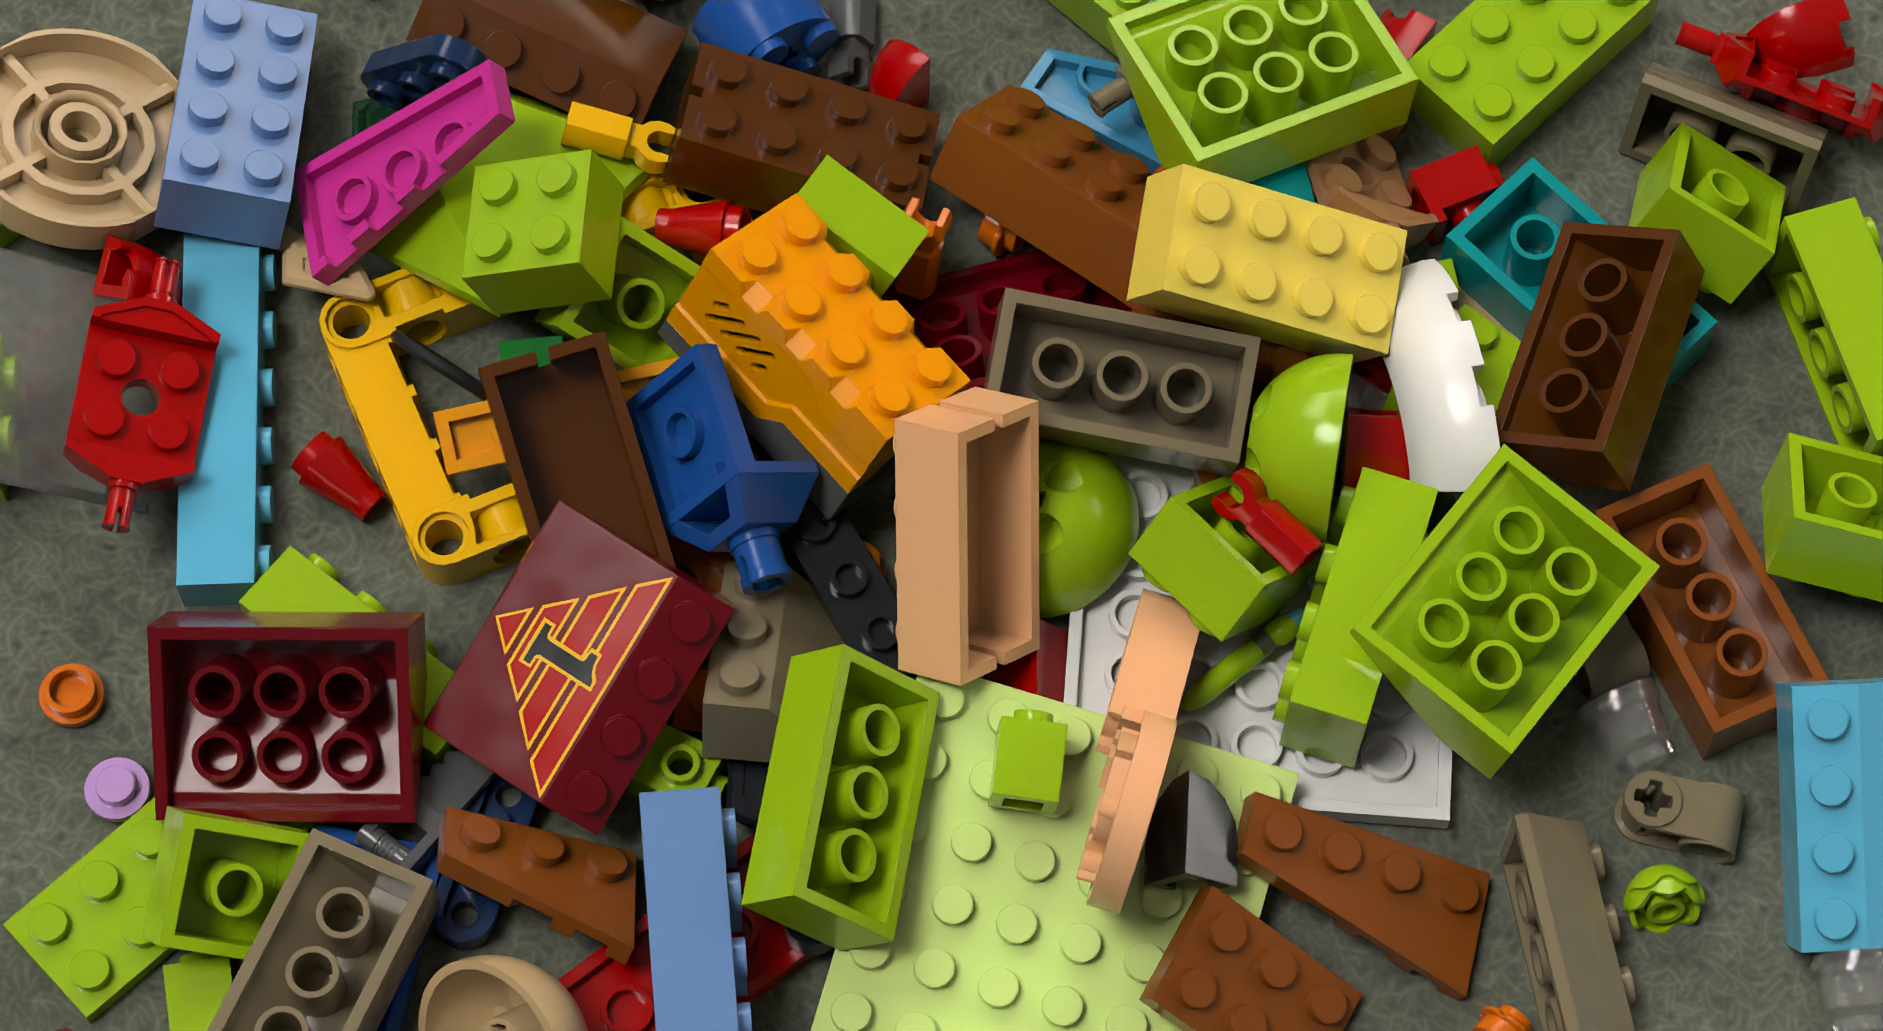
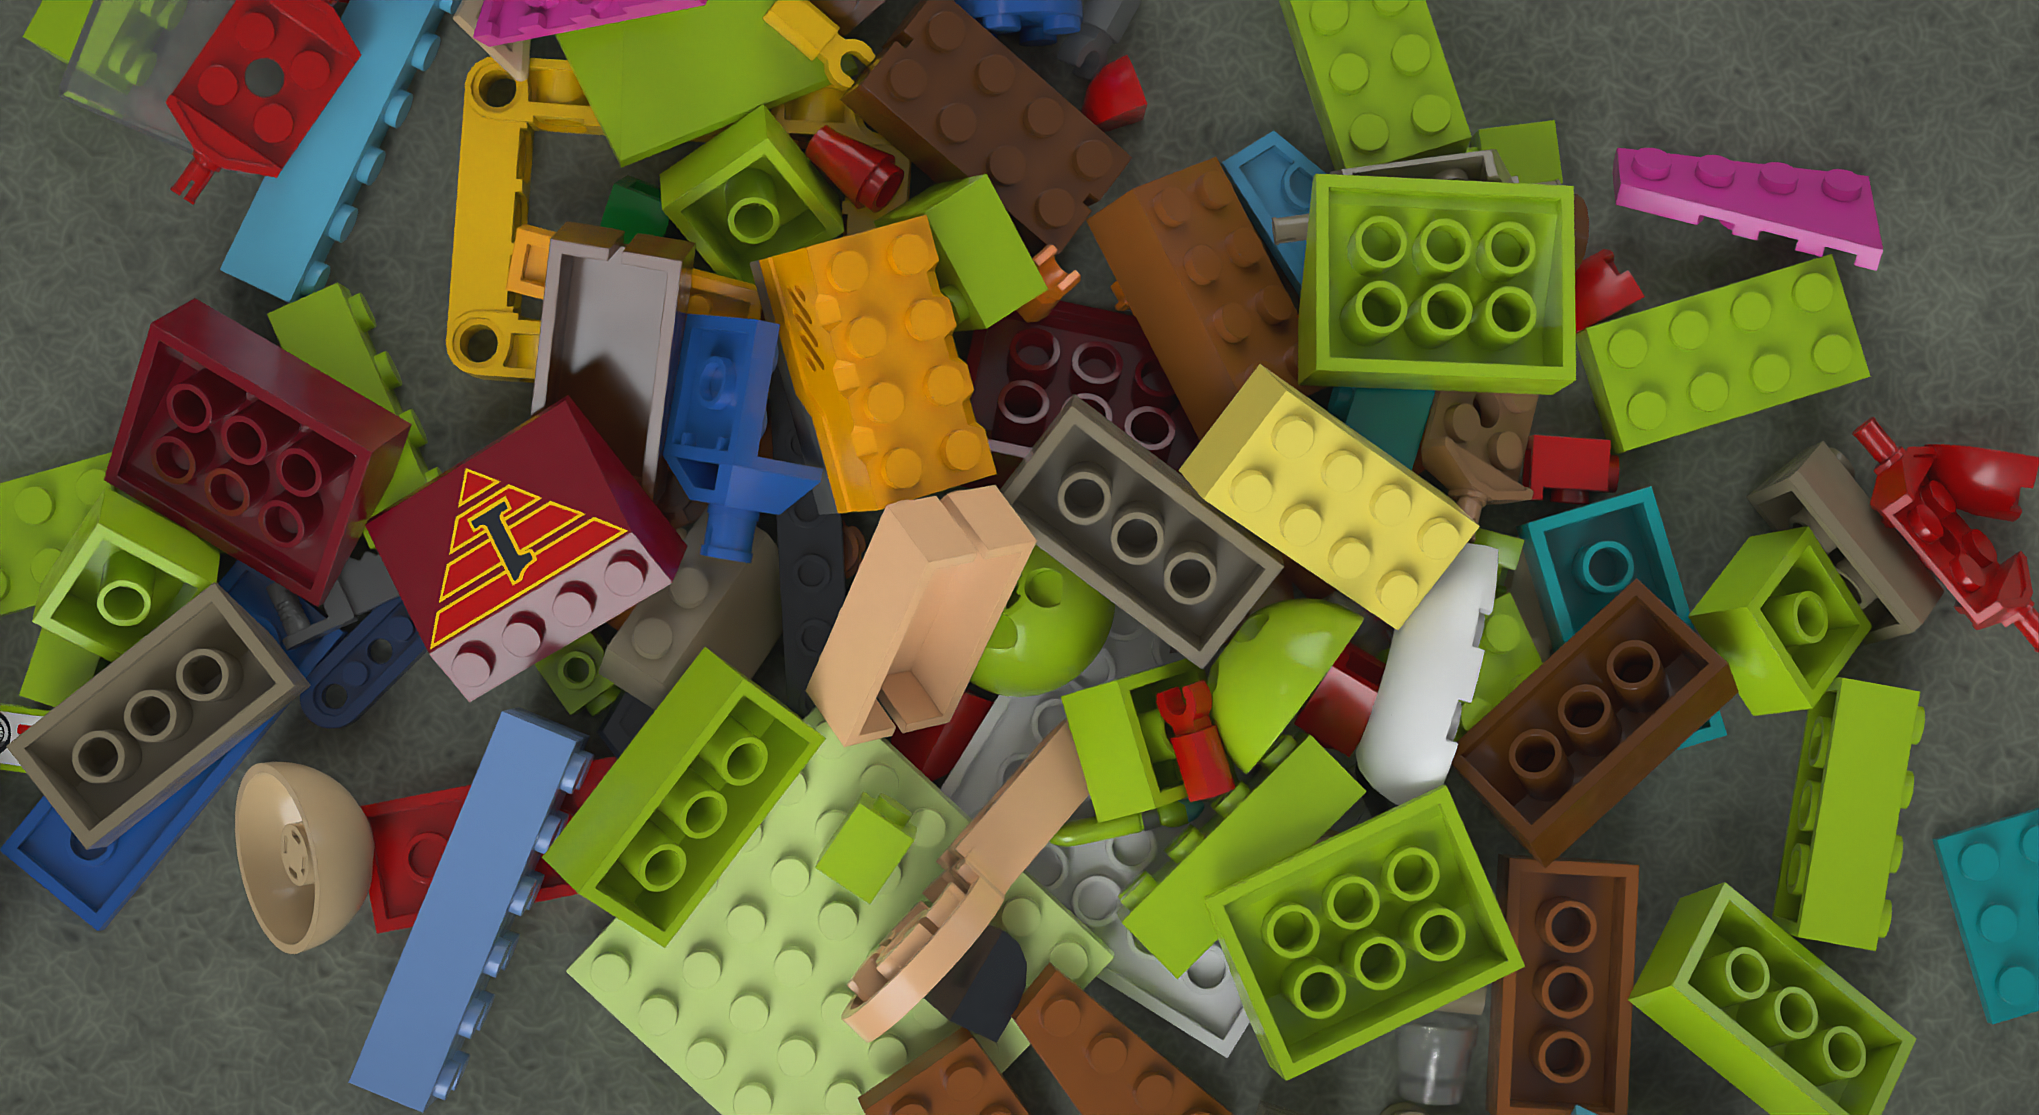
camera: 25 degrees right, 20 degrees up
(71, 695) = (93, 314): orange plate -> none
(117, 789) = (90, 424): lavender plate -> none
(337, 475) = (422, 226): red cone -> none
(439, 363) = (570, 160): black piece -> none
(543, 232) = (685, 121): lime brick -> none
(562, 876) = (409, 710): dark orange wing -> none

